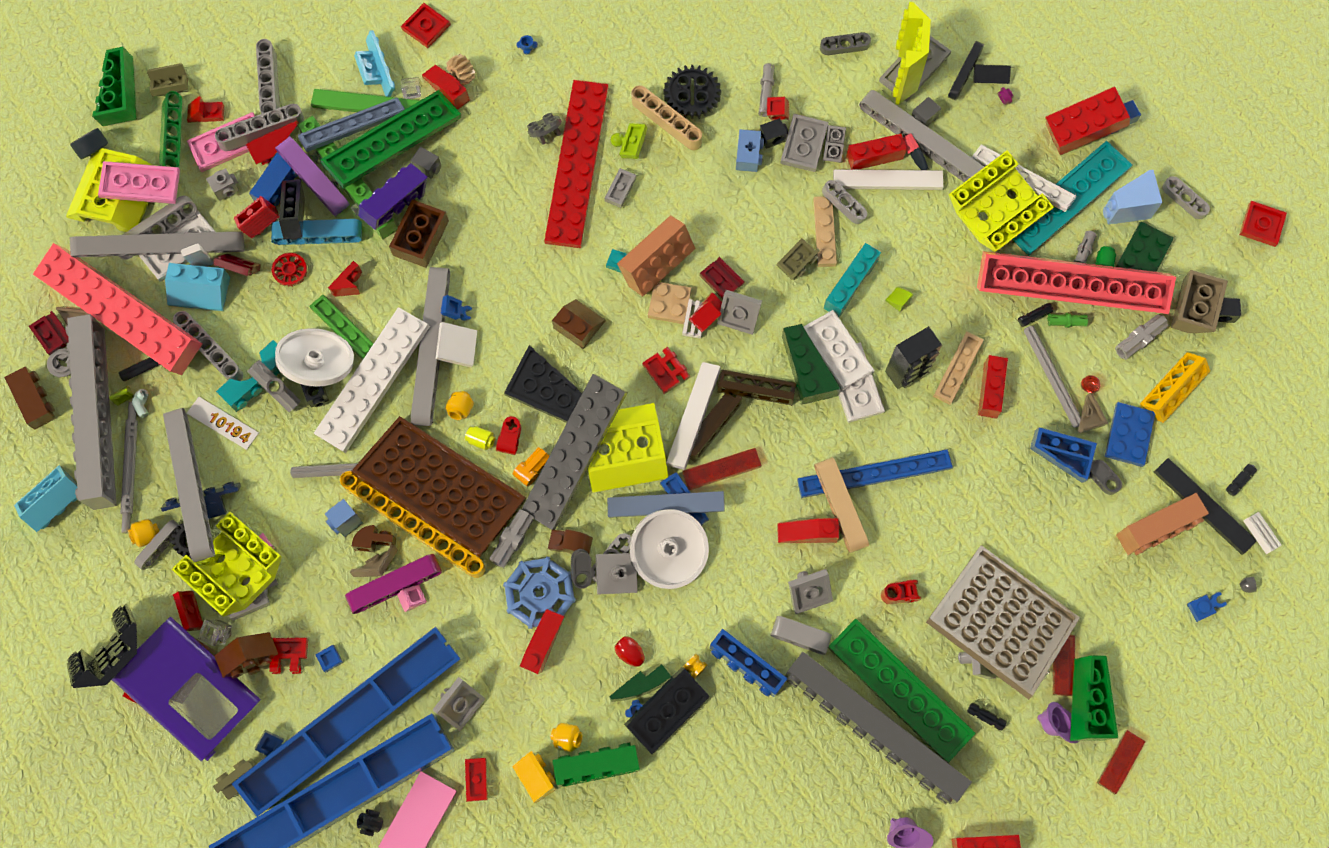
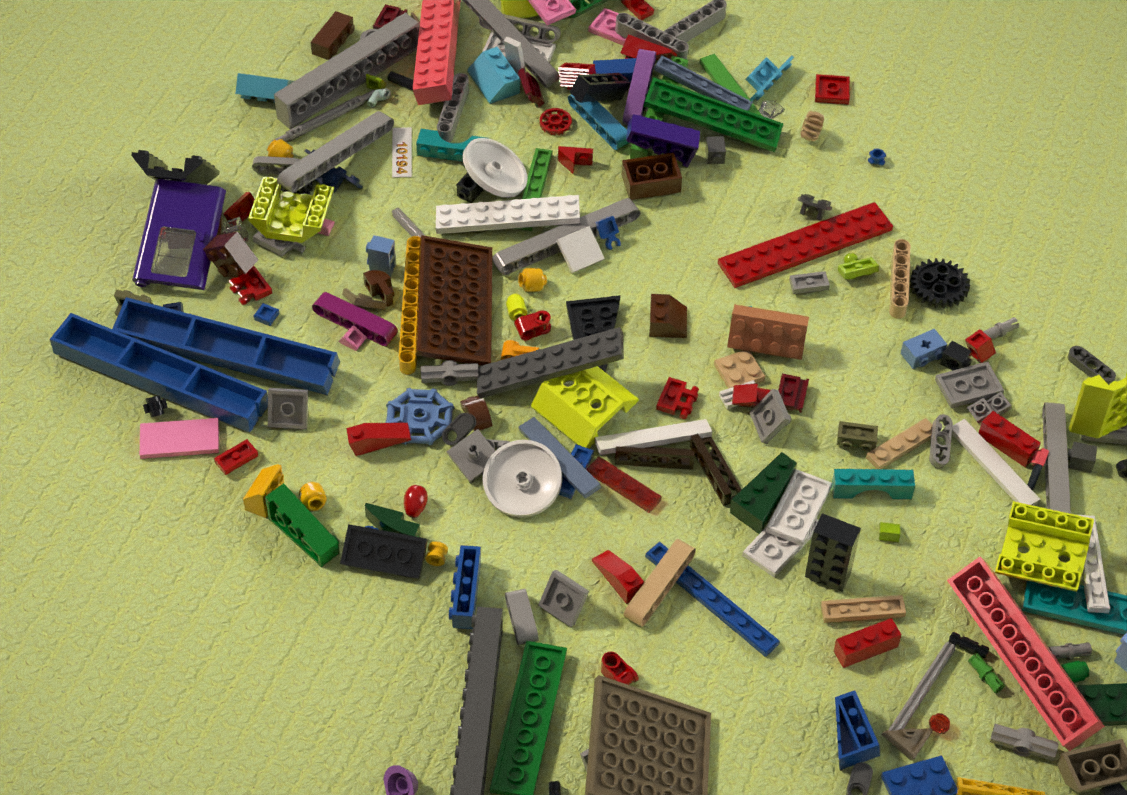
camera: 55 degrees right, 20 degrees down
(223, 184) = (587, 44): light grey brick -> none
(282, 395) = (453, 147): light grey piece -> none
(448, 86) = (791, 130): red slope -> none

